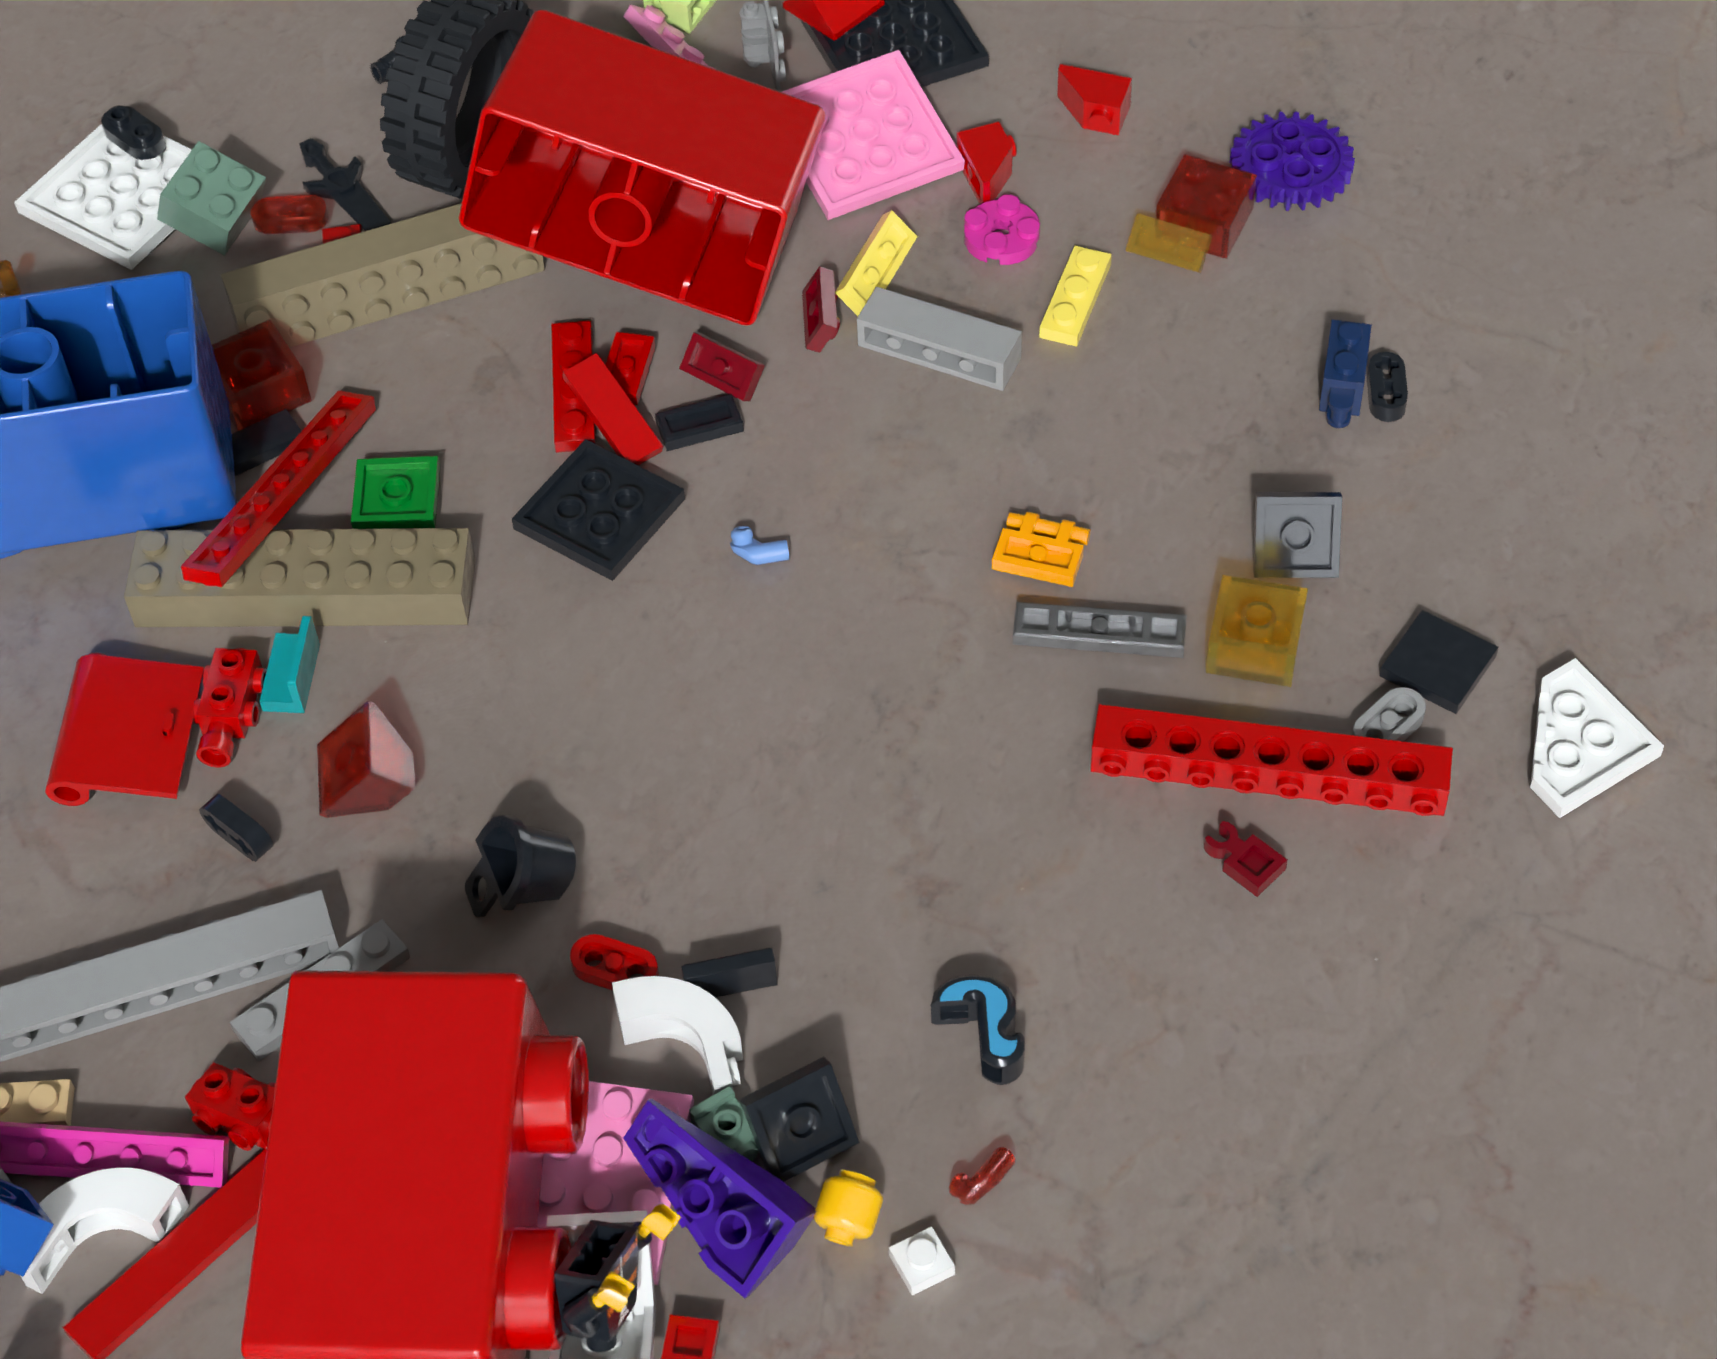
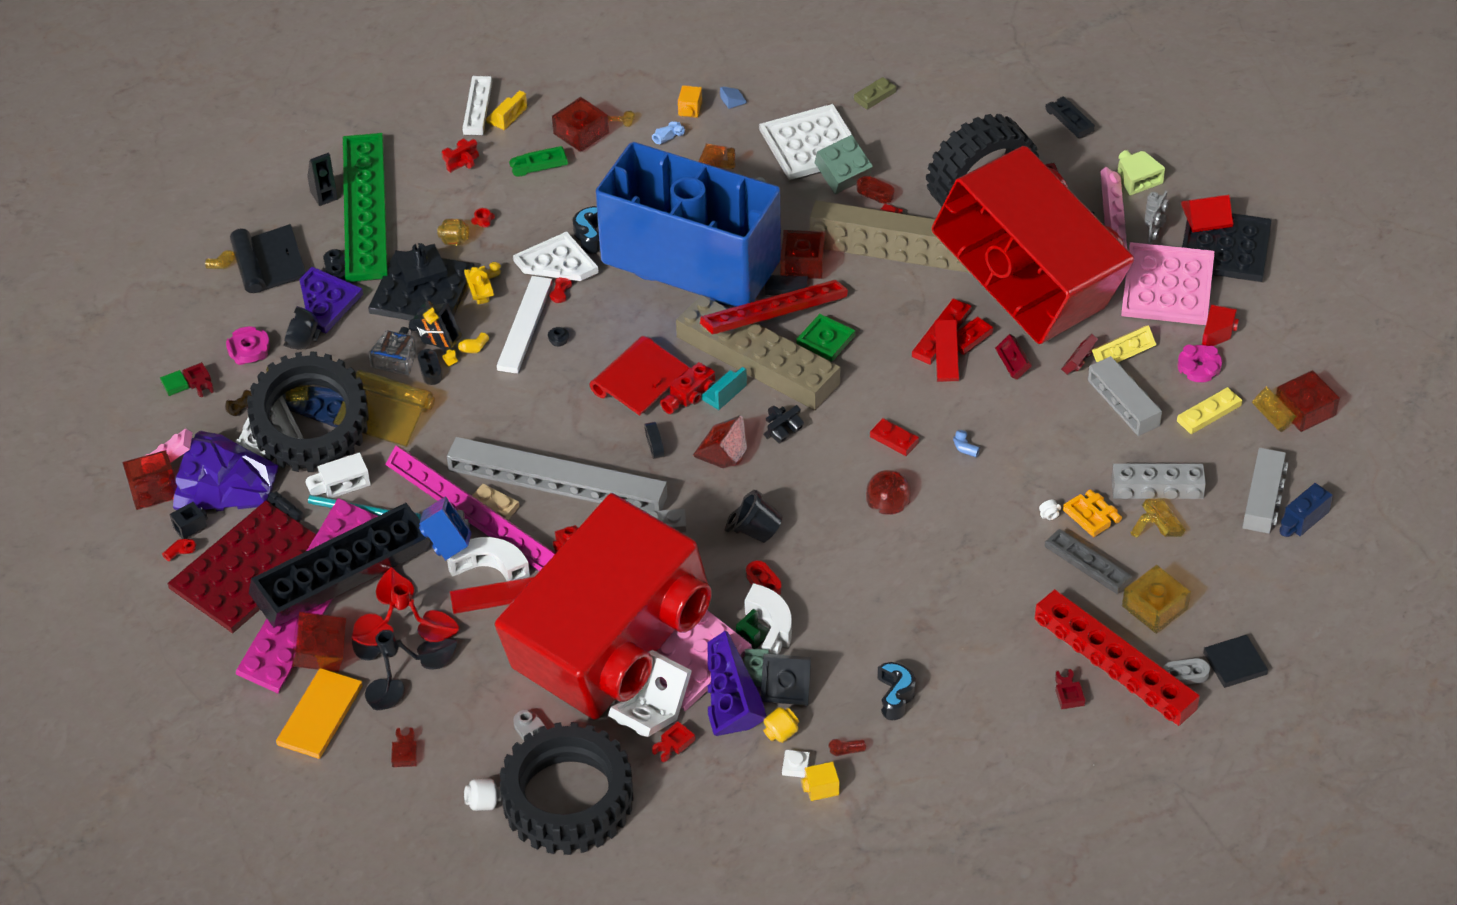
camera: 35 degrees right, 5 degrees down
(133, 132) = (832, 117): black plate -> none
(167, 65) = (874, 93): none -> olive plate
(342, 186) = (910, 188): black sword -> none
(436, 692) = (780, 420): none -> black hips
(598, 509) = (908, 390): black plate -> none
(600, 1276) = (652, 682): black torso -> none
(634, 598) = (894, 437): none -> red plate
(667, 1066) = (752, 630): none -> dark green panel
(699, 422) = (985, 376): black tile -> none
(700, 695) = (888, 492): none -> clear red cylinder
(733, 973) = (808, 610): black tile -> none
(975, 580) = (1049, 509): none -> white plate
(994, 1267) = (820, 781): none -> yellow brick
(1095, 98) = (1300, 324): red slope -> none
(1098, 444) = (1158, 481): none -> light grey brick
(1150, 495) = (1162, 516): none -> clear yellow plate
(1261, 373) = (1264, 490): none -> light grey brick
(1294, 160) = (1372, 402): dark purple gear -> none
(1297, 534) = (1212, 568): tile -> none
(1394, 386) = (1327, 531): black beam -> none
(1584, 740) = (1270, 730): white plate -> none

